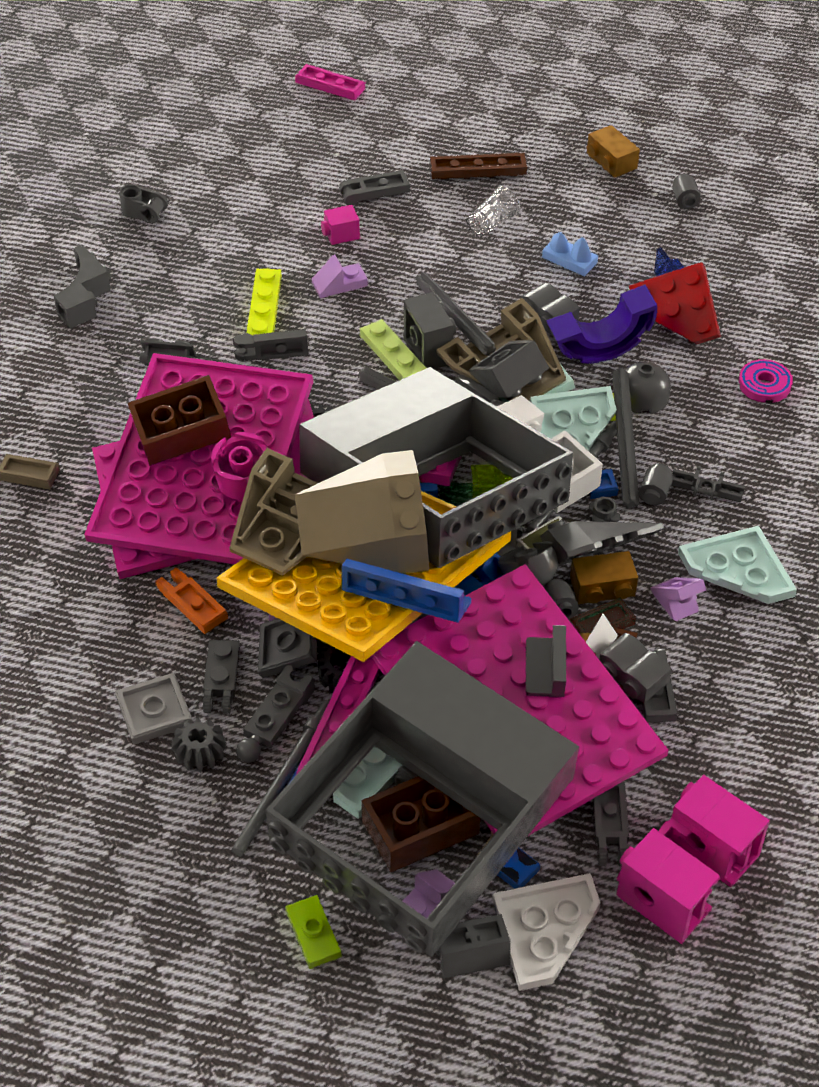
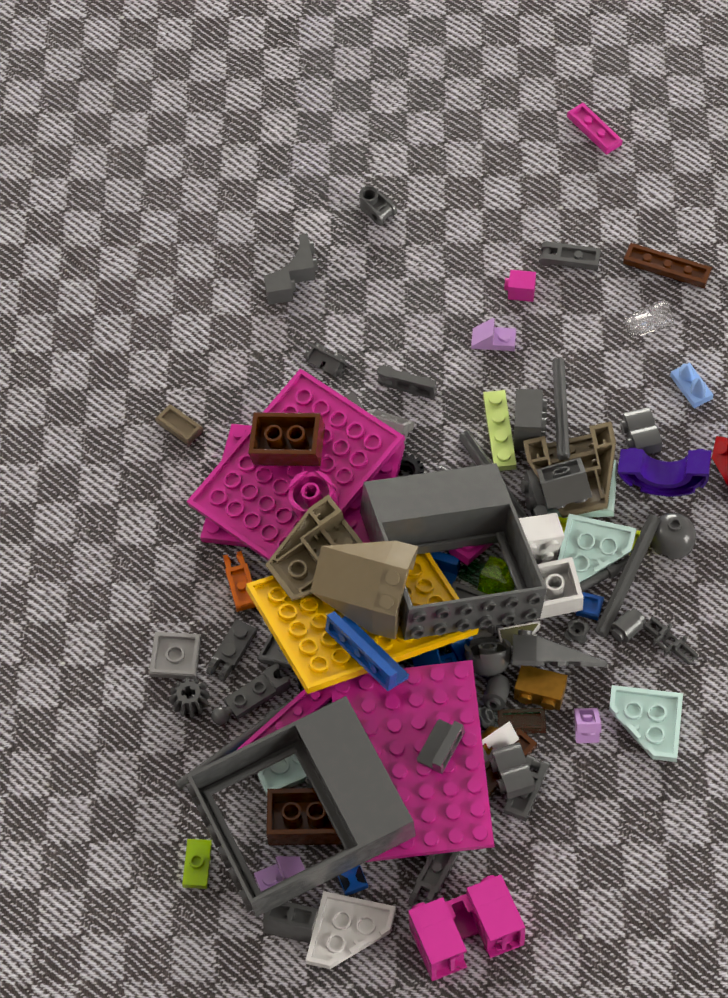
camera: 30 degrees right, 10 degrees up
(264, 301) = (423, 339): neon yellow plate -> none

